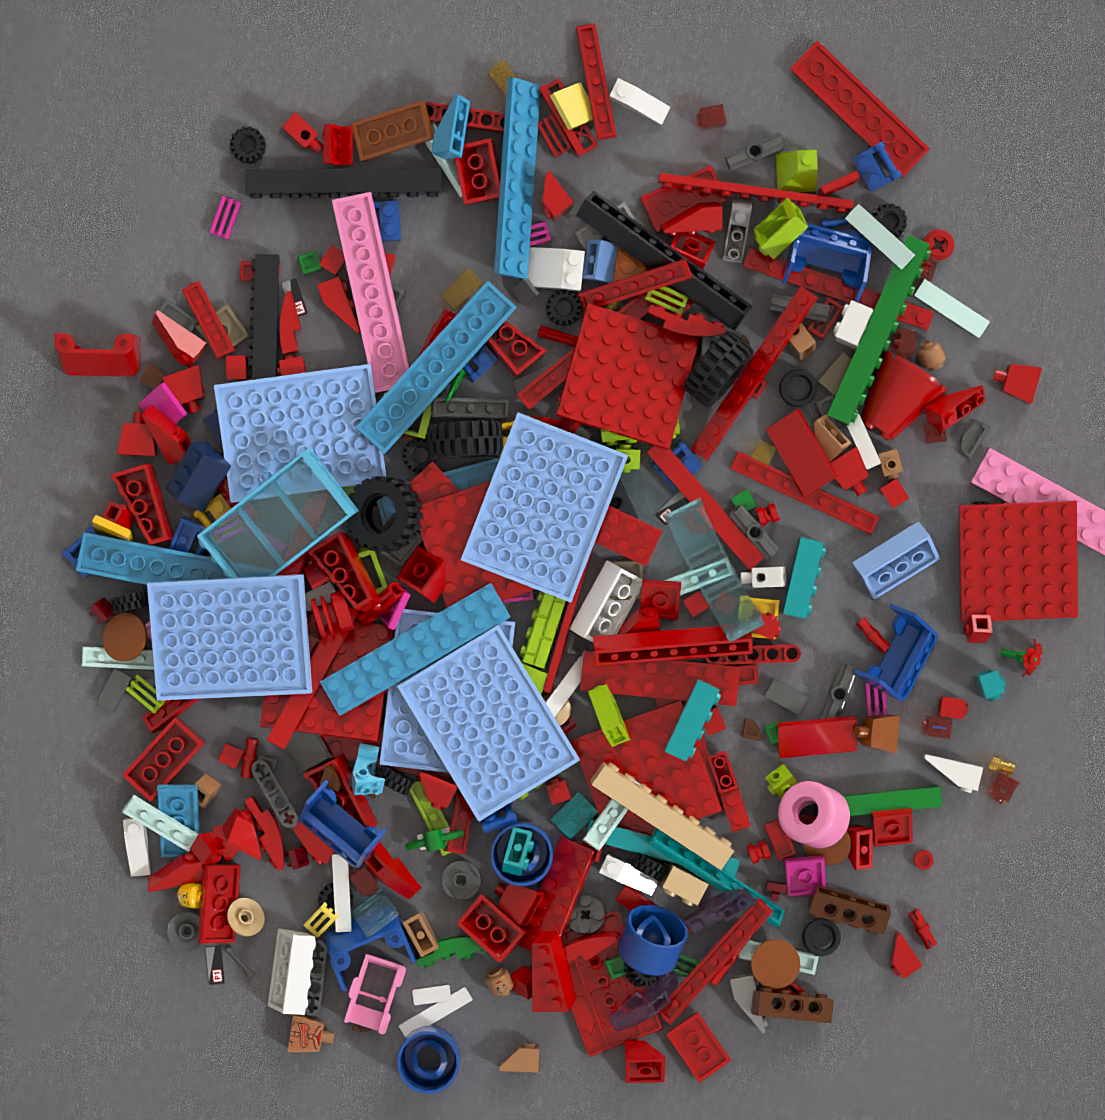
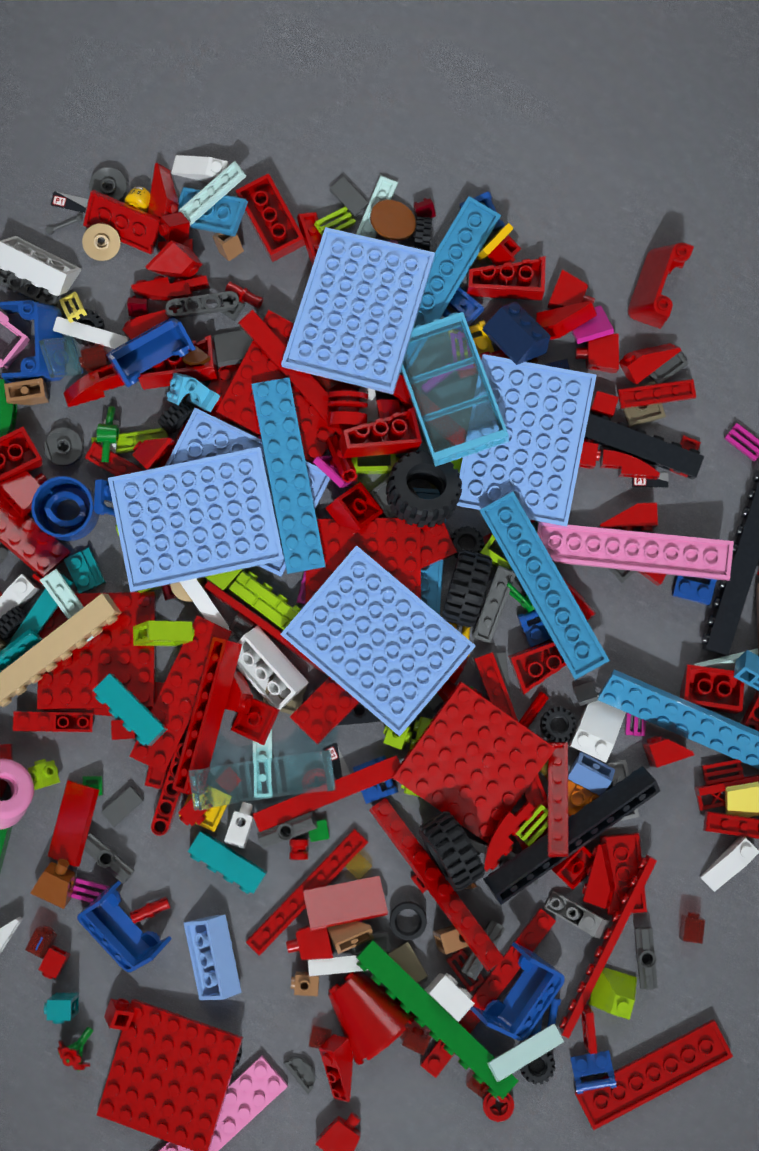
camera: 110 degrees right, 5 degrees down
(152, 377) = (621, 326): reddish brown tile -> none
(231, 755) = (252, 279): red tile -> none
(309, 263) = (678, 504): green tile -> none
(333, 260) = (673, 525): red panel -> none
(461, 288) = (607, 635): clear yellow tile -> none
(517, 850) = (66, 503): teal brick -> none
(558, 790) = (111, 563): red brick -> none
(696, 604) = (239, 752): red tile -> none
(751, 730) = (103, 762): reddish brown tile -> none
(780, 228) = (565, 957): lime window -> none
(894, 493) = (276, 978): red panel -> none
(931, 355) = (394, 1060): medium nougat head -> none
(951, 308) = (432, 1096): light aqua tile -> none

